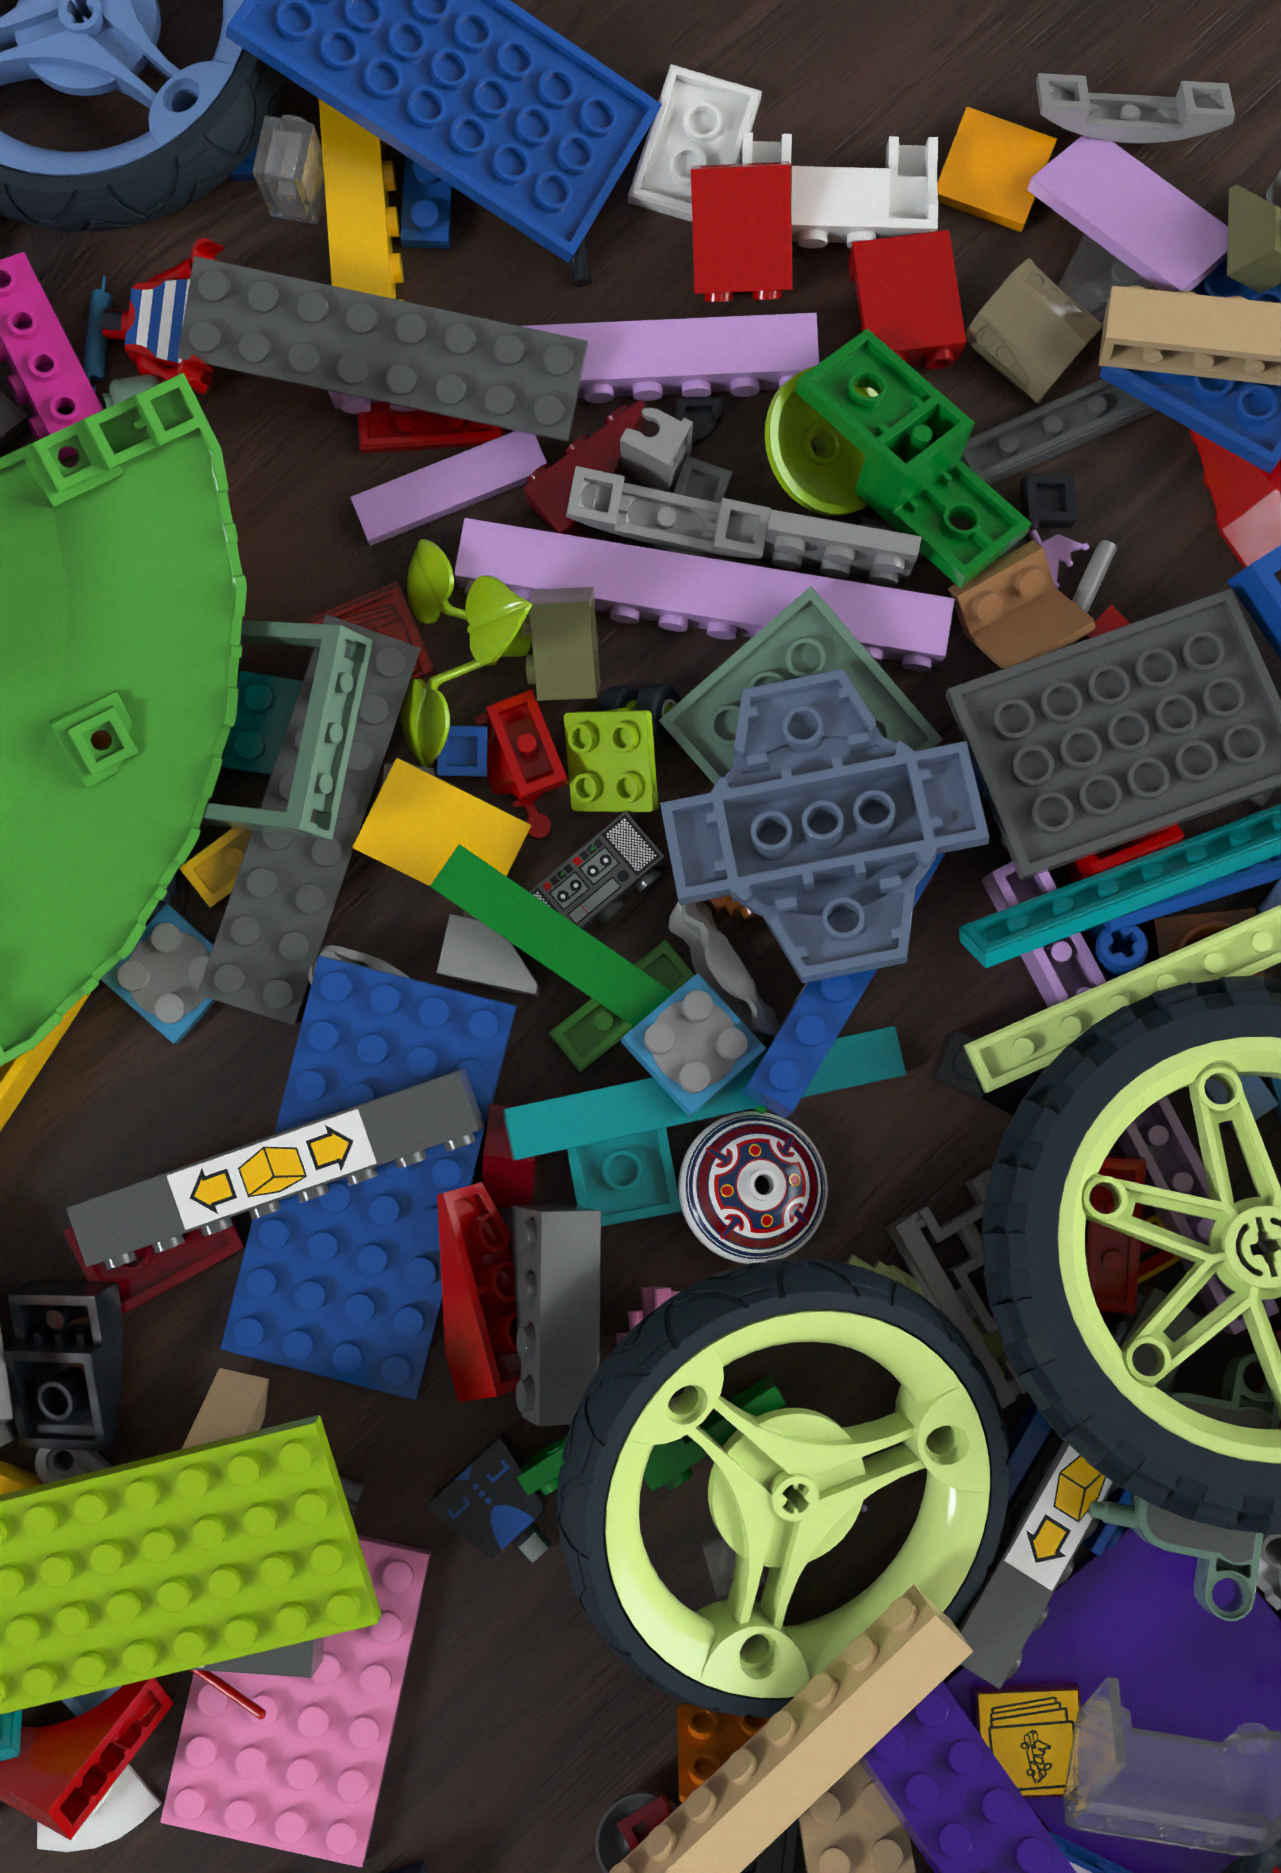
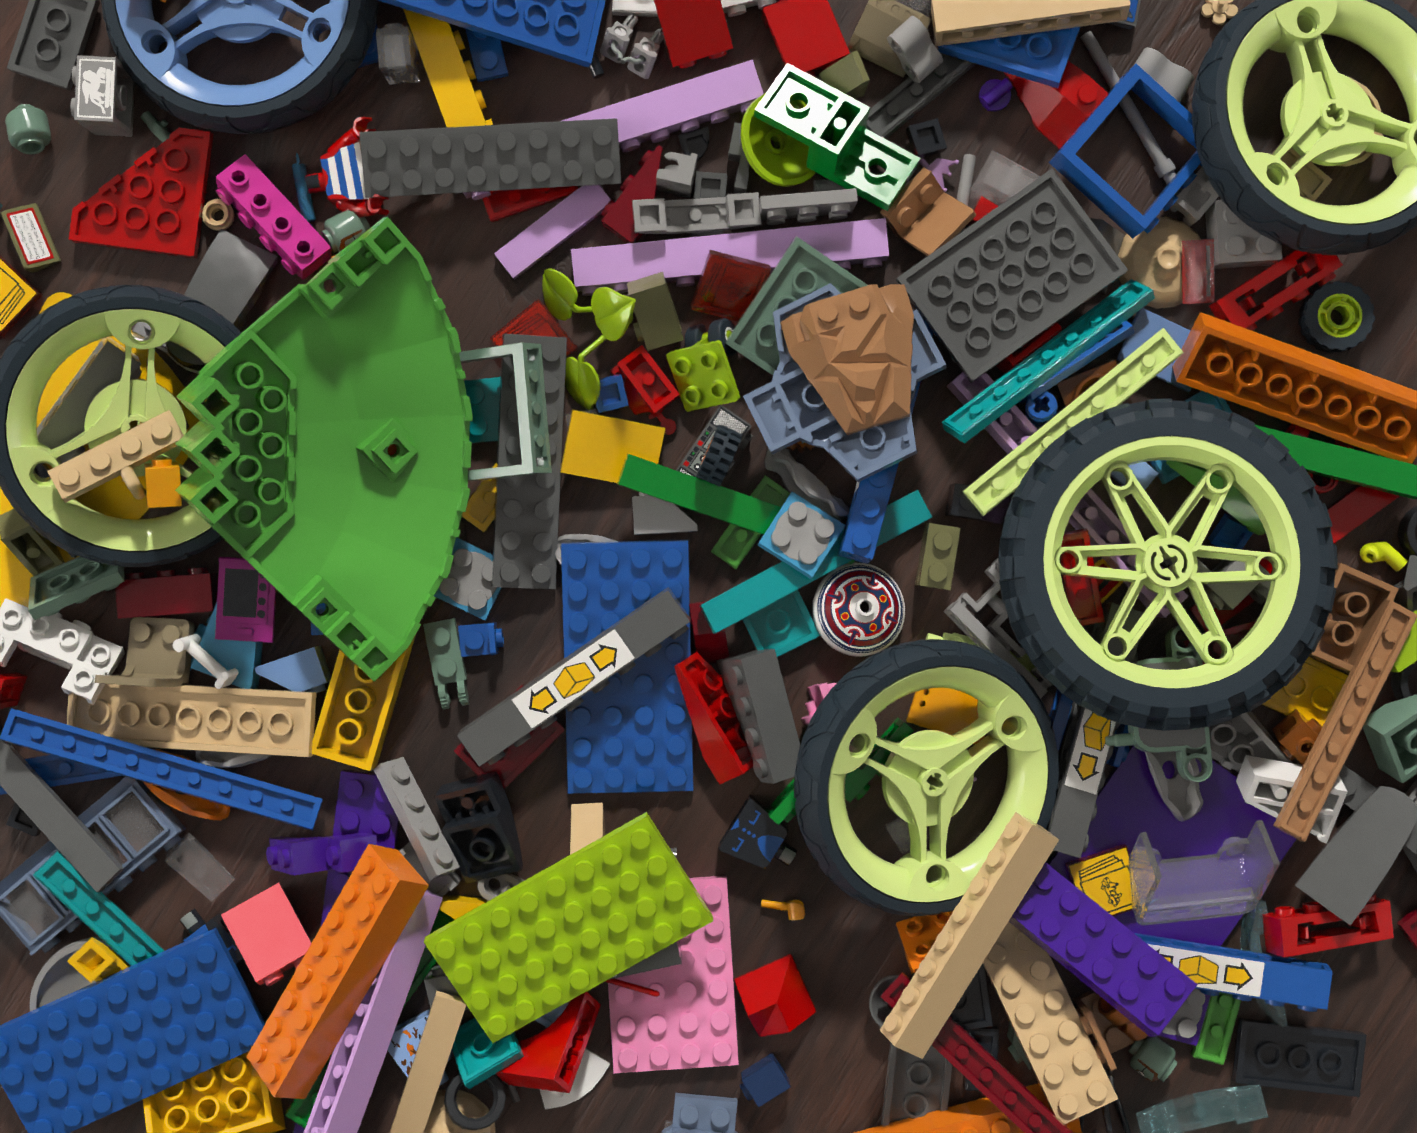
camera: 20 degrees left, 5 degrees up
(97, 1089) = (446, 659): none -> sand green hinge
(157, 1070) = (480, 639): none -> blue bracket
(451, 1772) = (775, 997): none -> red slope
(523, 1633) = (794, 907): none -> light orange hand
(598, 884) = (719, 455): none -> black wheel
(656, 263) = (643, 53): none -> light grey piece
(687, 634) = (728, 285): none -> clear red tile
(754, 450) = (737, 155): none -> dark grey slope
(842, 1384) = (943, 710): none -> light orange container
(854, 783) = (857, 353): none -> medium nougat wedge
(898, 1138) = (937, 556): none -> olive brick
(955, 370) = (847, 76): none -> olive slope
(1066, 360) = (915, 49): none -> light grey axle
(1146, 586) = (1001, 179): none -> clear brick
(1171, 464) = (995, 94): none -> dark purple plate
(1184, 1627) = (1178, 794): none -> light grey piece

